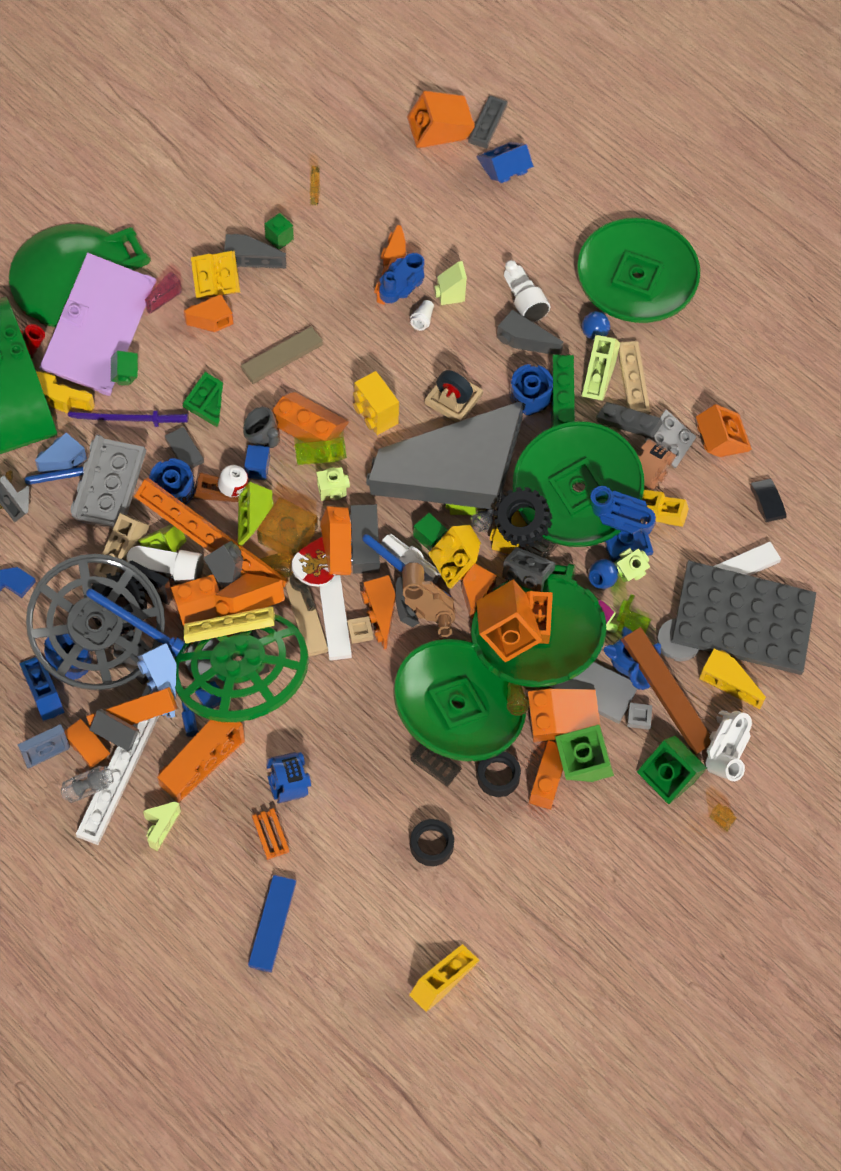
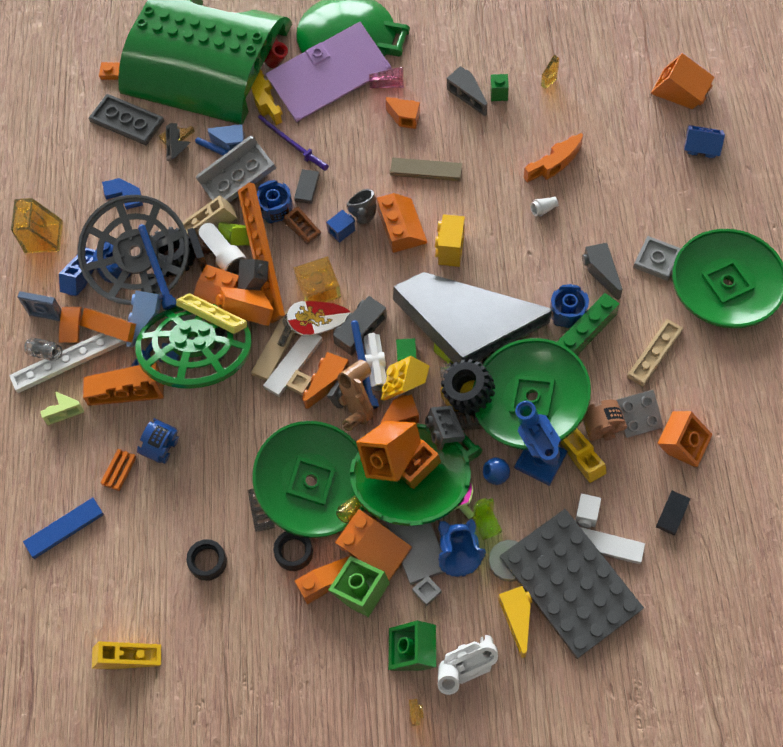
camera: 50 degrees right, 0 degrees up
(114, 729) = (88, 328): dark grey tile -> none
(124, 367) = (316, 109): green brick -> none
(206, 399) = (349, 164): green wing -> none
(215, 274) = (430, 88): yellow slope -> none
(232, 480) = (310, 225): white head -> none
(253, 507) = (309, 250): lime slope -> none
(280, 563) = (289, 298): clear yellow tile -> none
(320, 451) = (388, 249): clear neon green bracket -> none
(332, 483) = (372, 273): yellowish green brick -> none
(337, 539) = (338, 312): orange slope -> none
(402, 278) = (548, 169): blue piece -> none
(451, 285) = (581, 198): yellowish green slope -> none
(453, 396) = (511, 273): plate -> none
(488, 122) = (719, 107): dark grey tile -> none
(528, 299) = (628, 242): white piece -> none
(562, 294) = (656, 258): none -> light grey tile
(595, 324) = (659, 295): blue piece -> none
(600, 367) = (636, 326): yellowish green slope -> none
(627, 570) = (515, 482): yellowish green brick -> none
(629, 420) = (620, 378): dark grey plate -> none
(667, 690) = (458, 587): dark orange tile -> none
(704, 548) = (587, 510): none -> white brick

